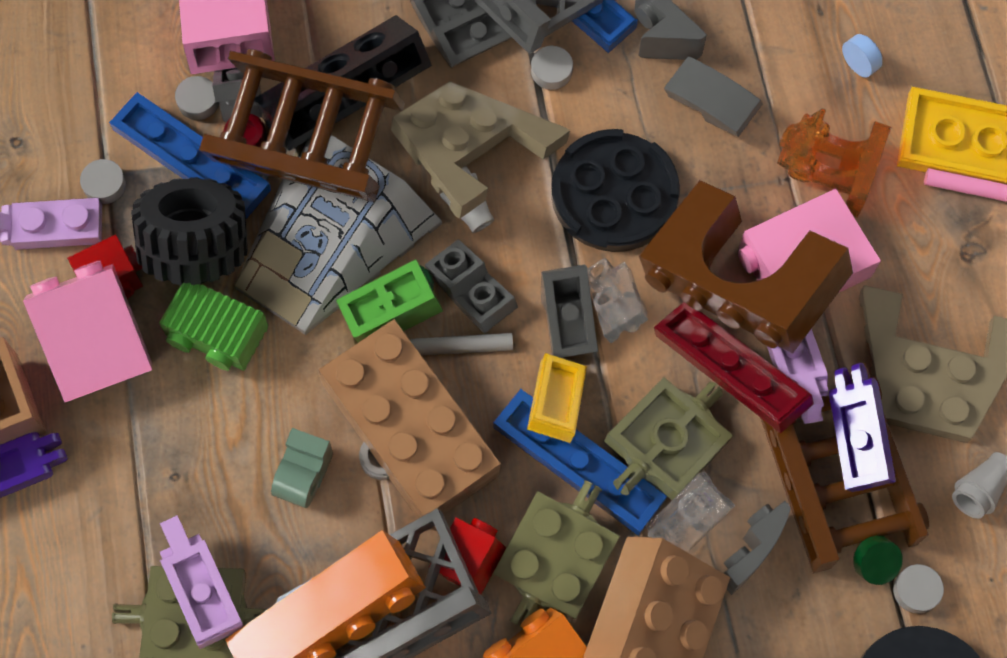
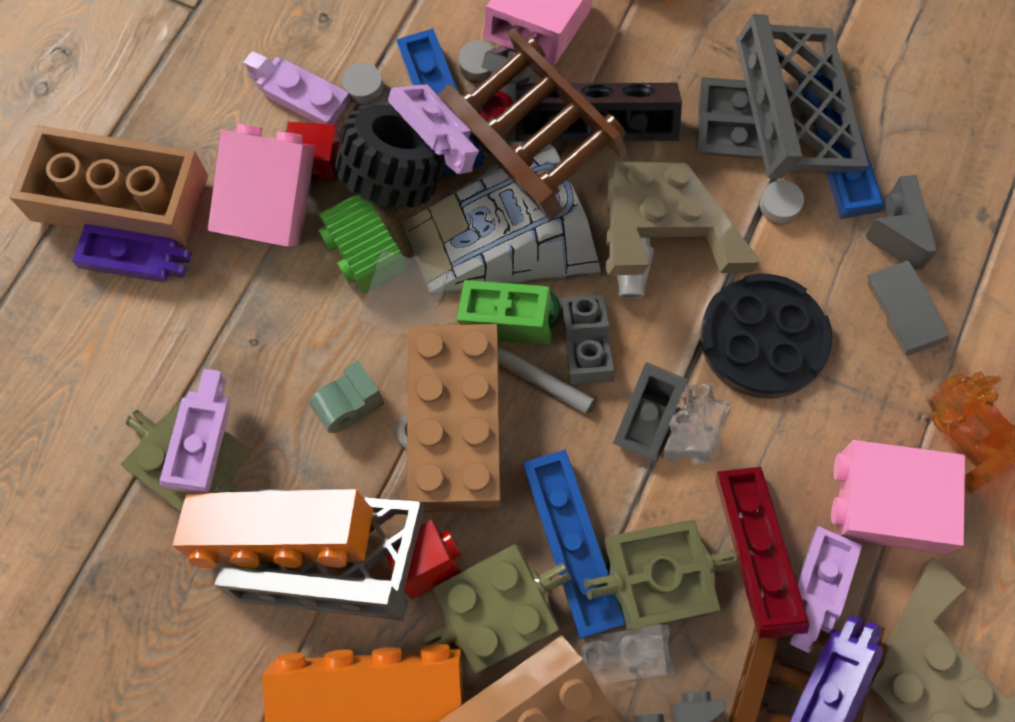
camera: 40 degrees right, 0 degrees up
(218, 178) = (436, 125): none -> lavender hinge
(286, 347) = (403, 293): none -> clear piece
(557, 398) = (590, 477): yellow tile -> none
(774, 309) = (829, 525): reddish brown arch -> none

